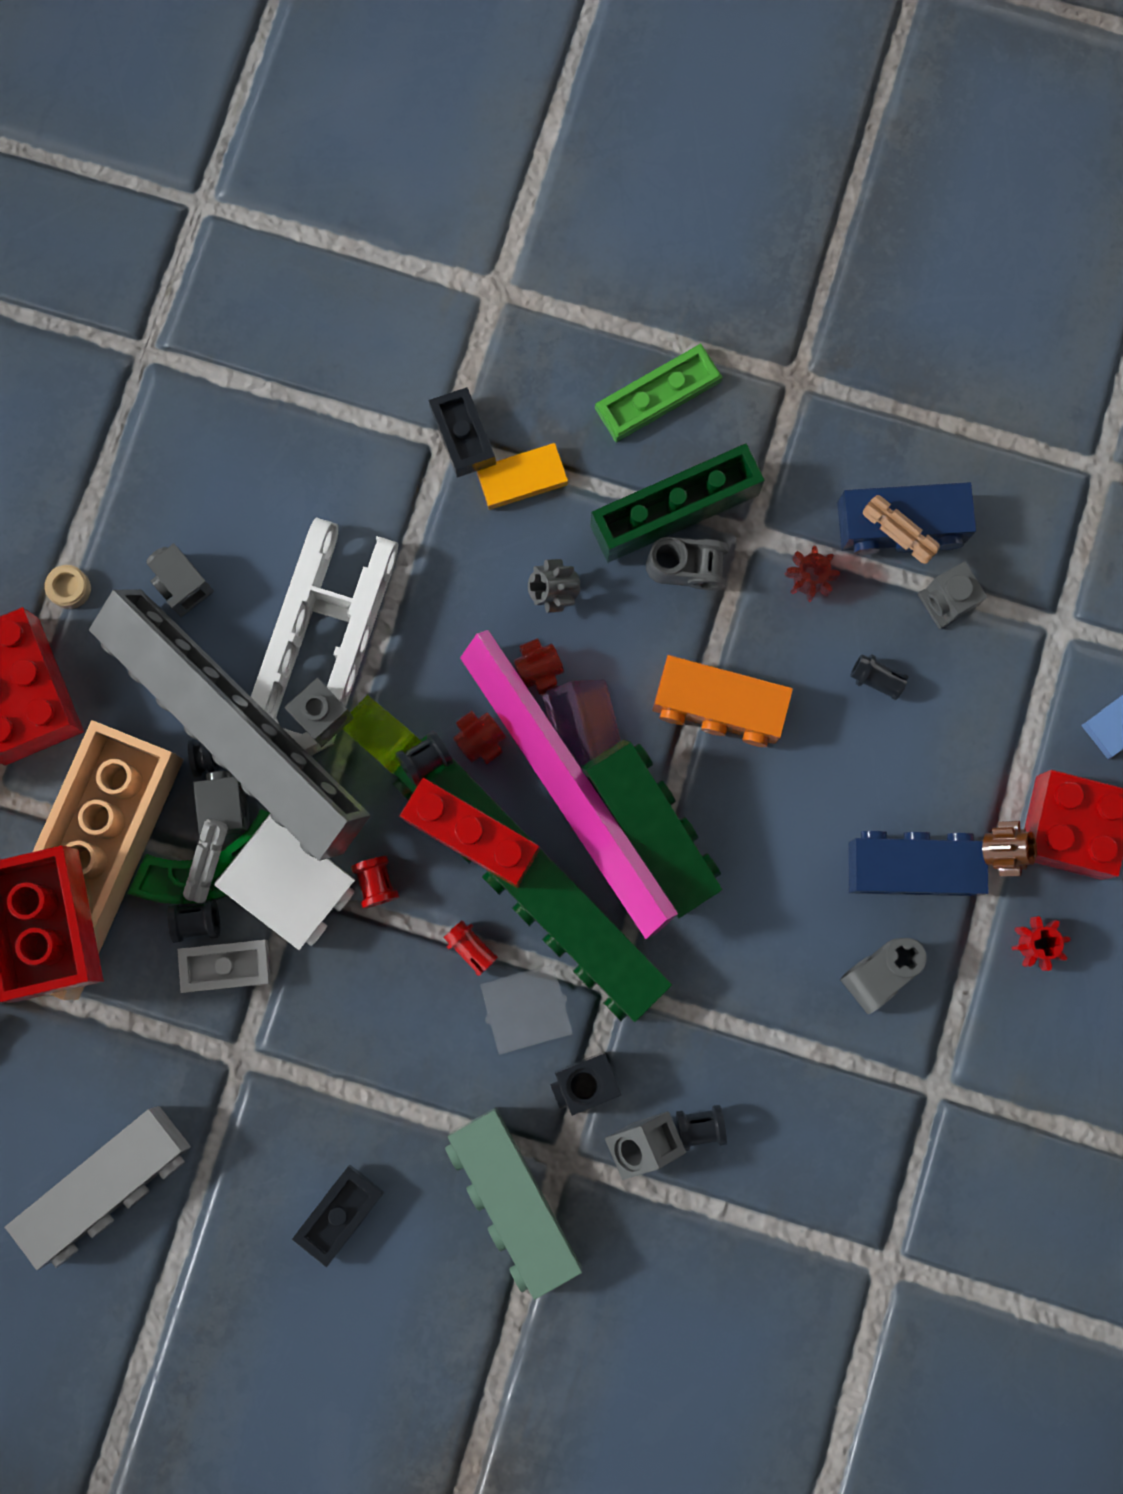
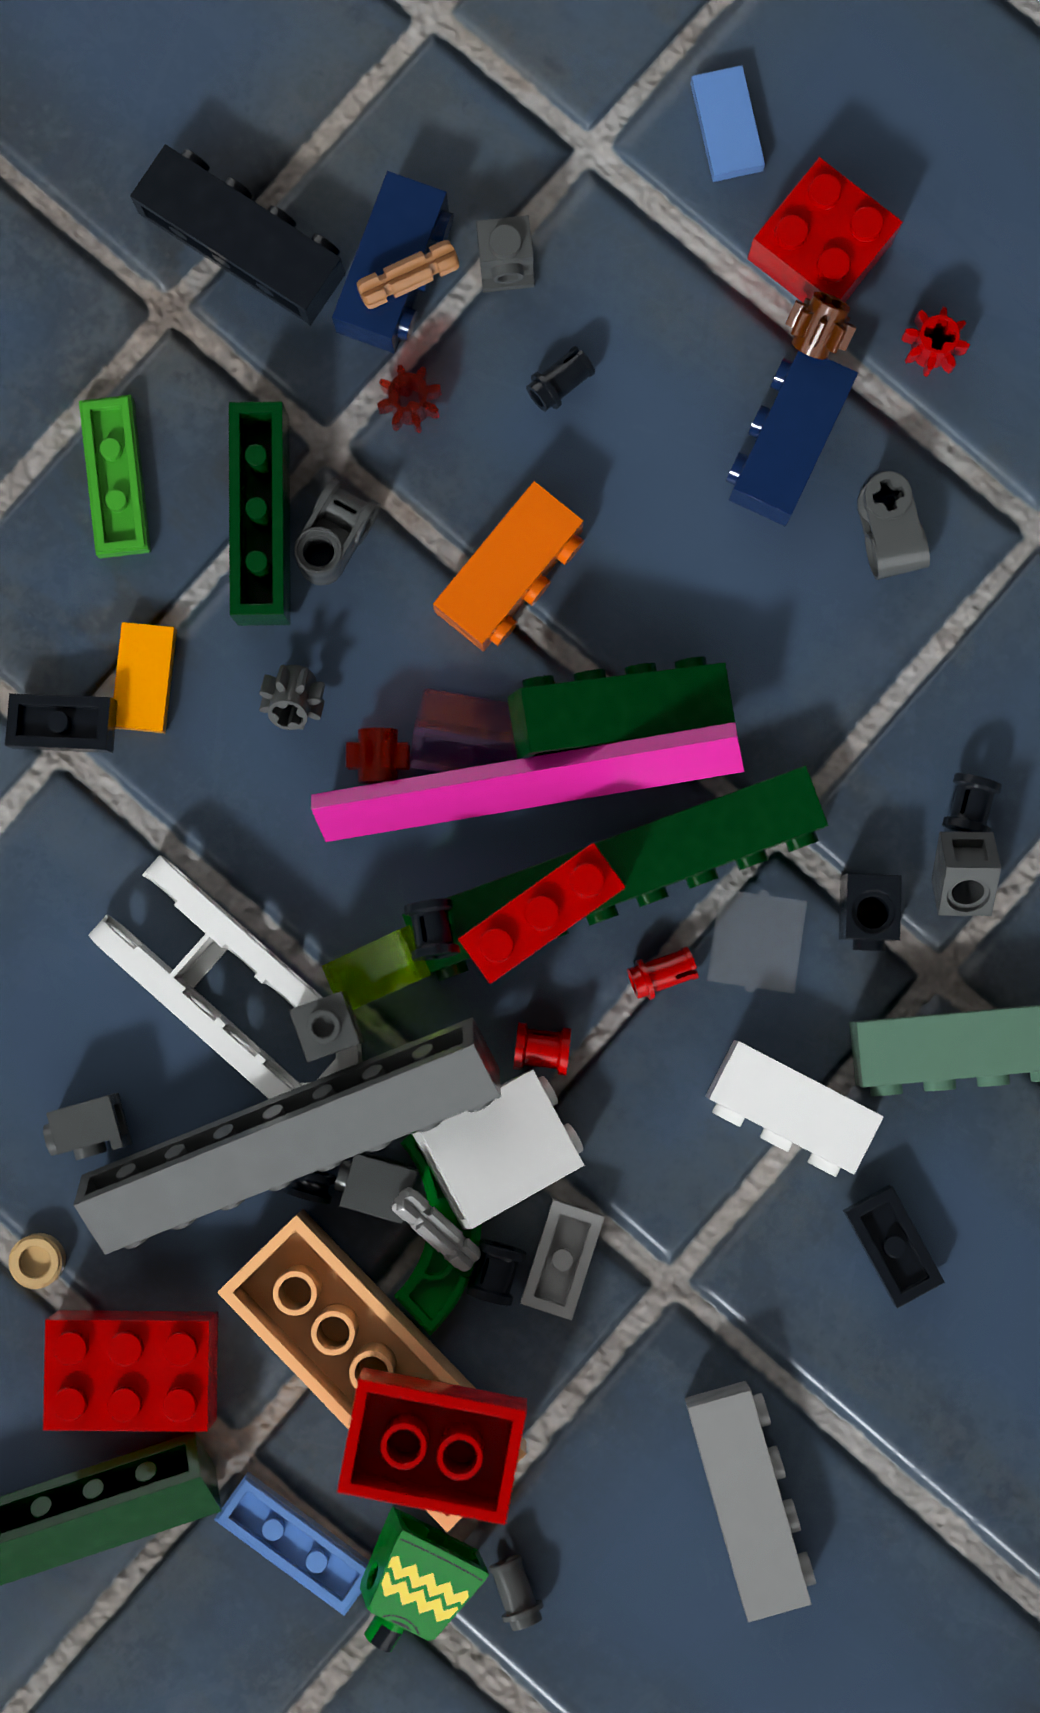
camera: 60 degrees left, 5 degrees up
(408, 1092) = (792, 1109): none -> white brick
(479, 737) = (430, 859): clear red gear -> none
(875, 399) = (239, 233): none -> black brick

